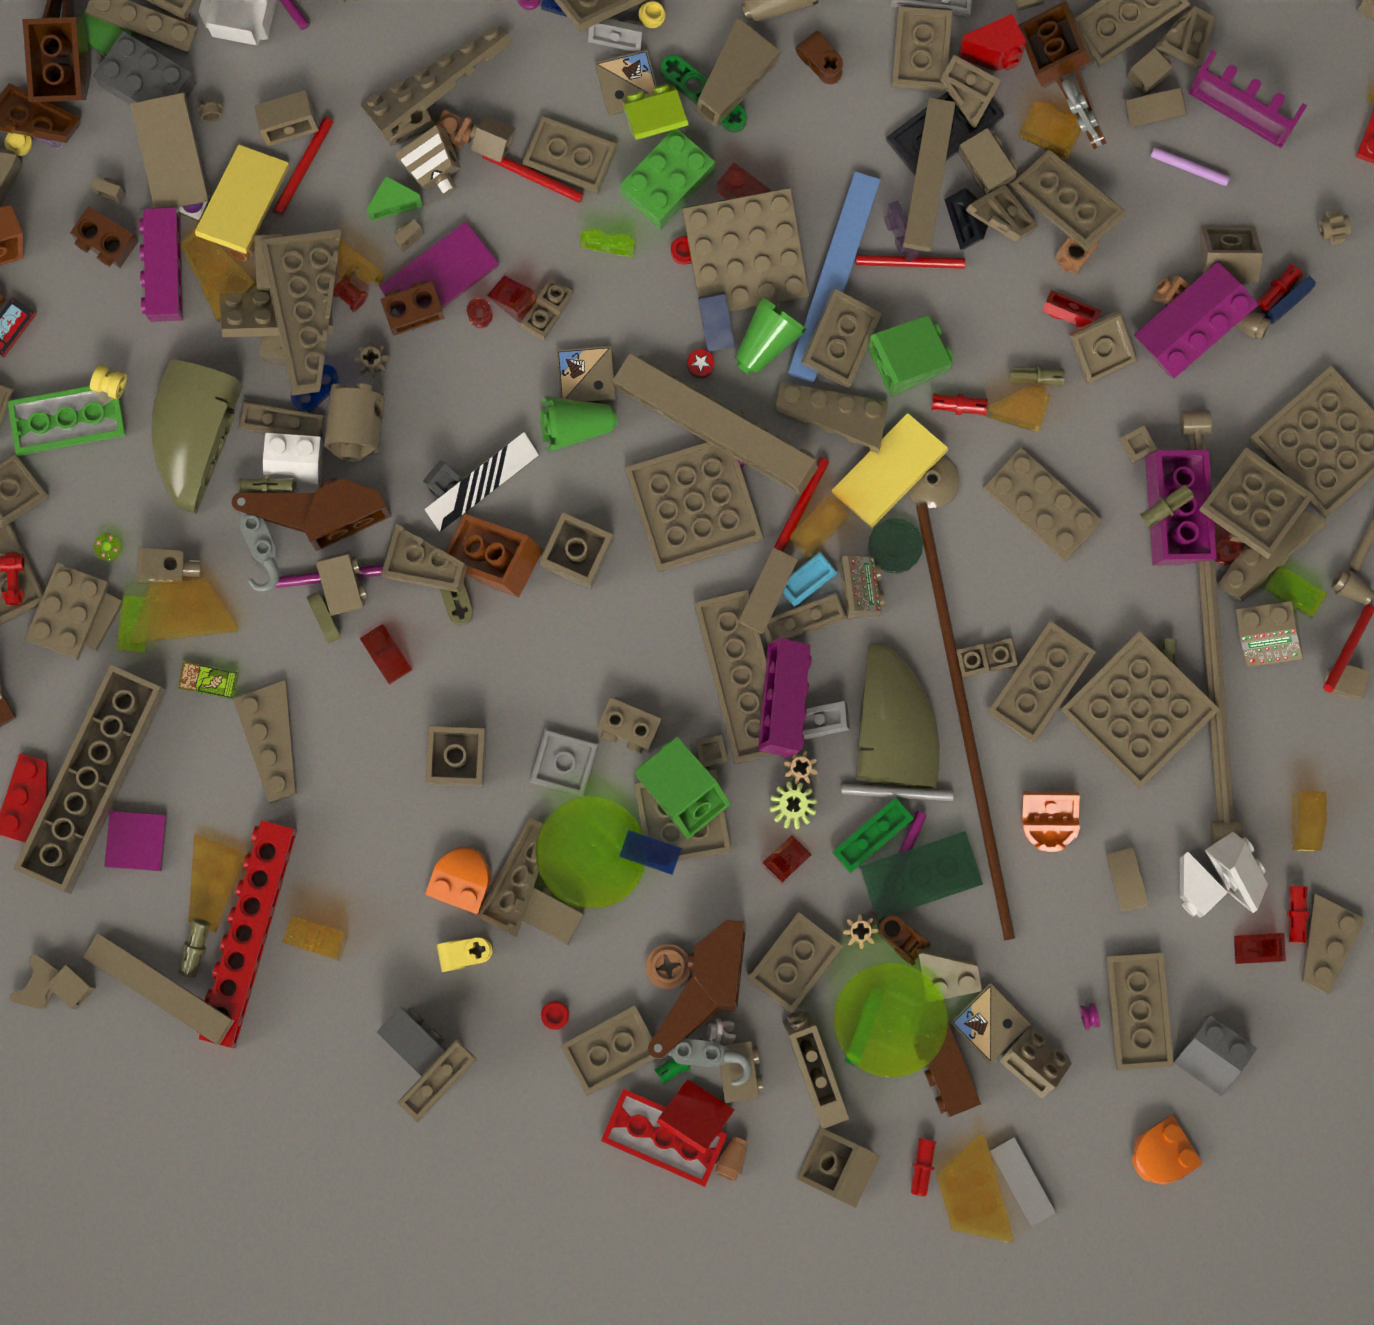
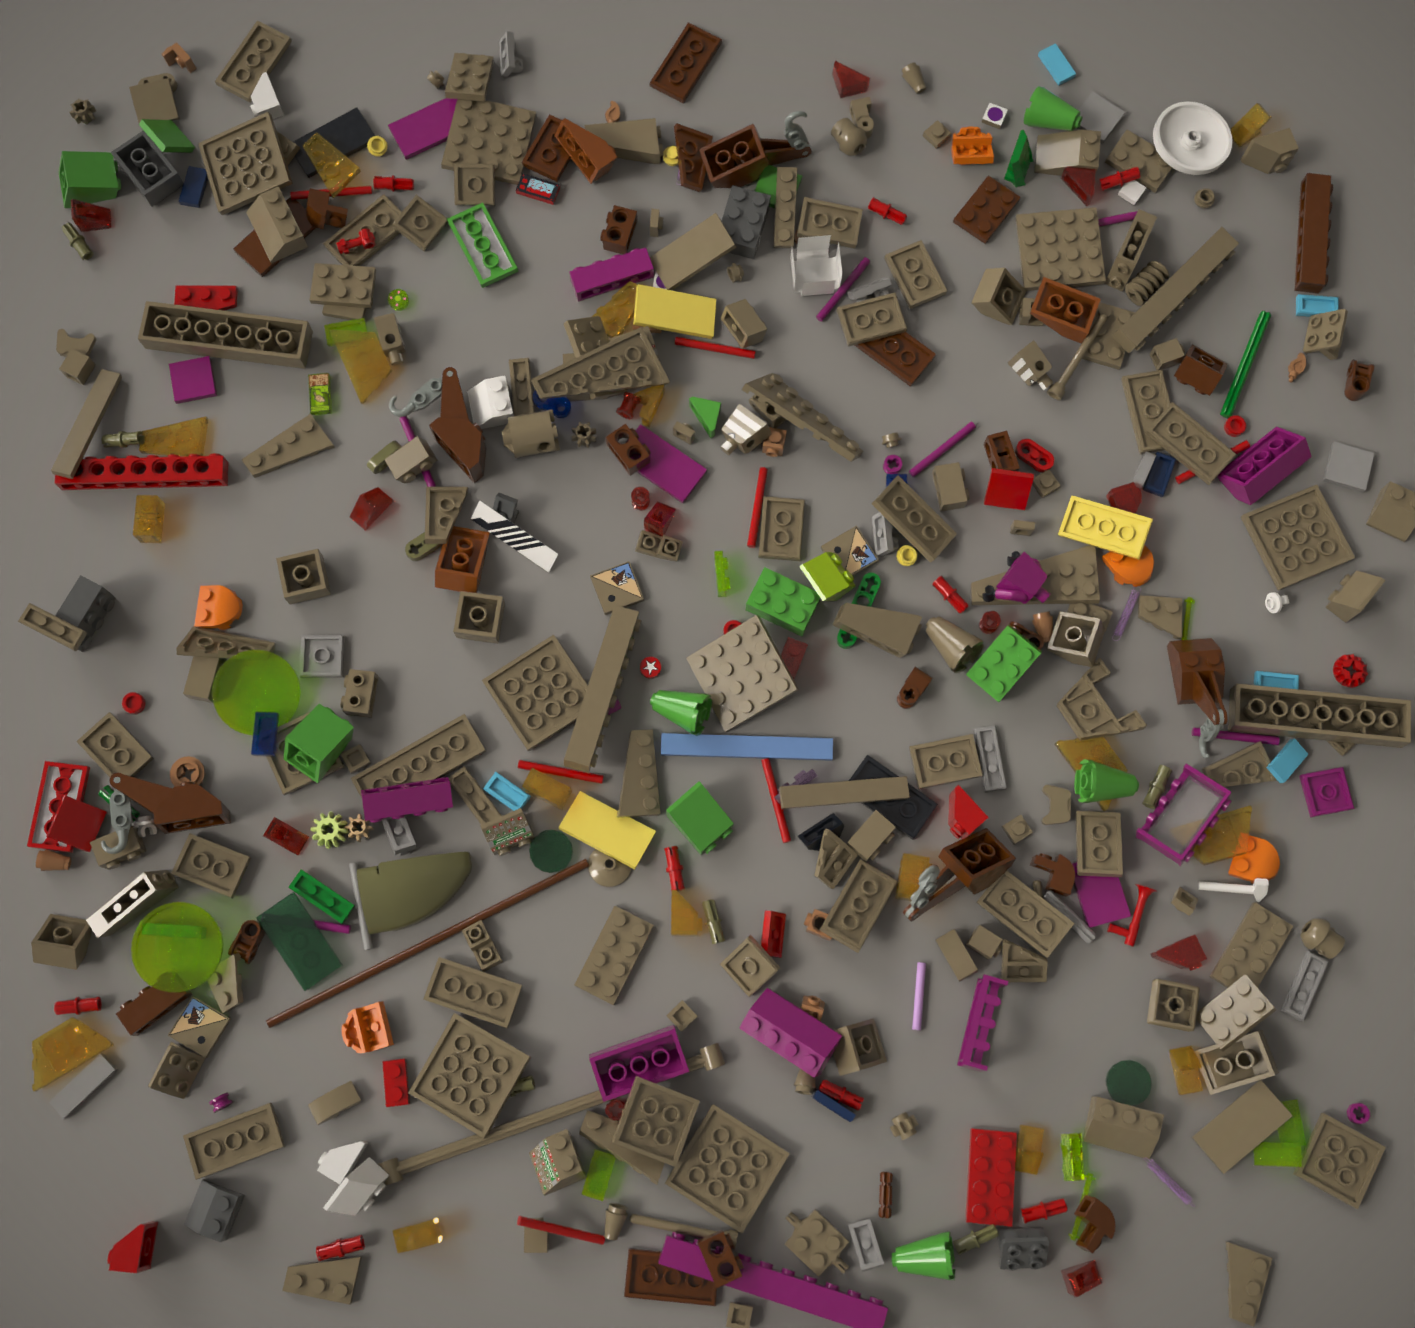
camera: 70 degrees right, 5 degrees down
(108, 381) = (512, 263): light yellow wheel -> none
(191, 428) = (496, 328): olive panel -> none
(267, 485) = (469, 398): olive pin -> none
(459, 954) = (162, 624): light yellow piece -> none
(492, 138) = (773, 469): dark tan brick -> none
(574, 421) = (577, 588): bright green cone -> none
(716, 321) = (683, 668): dark blue tile -> none
(767, 590) = (487, 764): dark tan tile -> none
(840, 338) = (698, 761): dark tan plate -> none
(866, 926) = (239, 904): tan gear -> none
(969, 88) = (923, 805): dark tan wing -> none
(1122, 802) = (396, 1082): none -> red plate
(1164, 1153) = (127, 1191): orange slope -> none
(1167, 506) = (629, 1048): olive axle -> none
(1238, 1155) = (135, 1250): none -> red slope
(1260, 948) = (304, 1223): clear red slope -> none

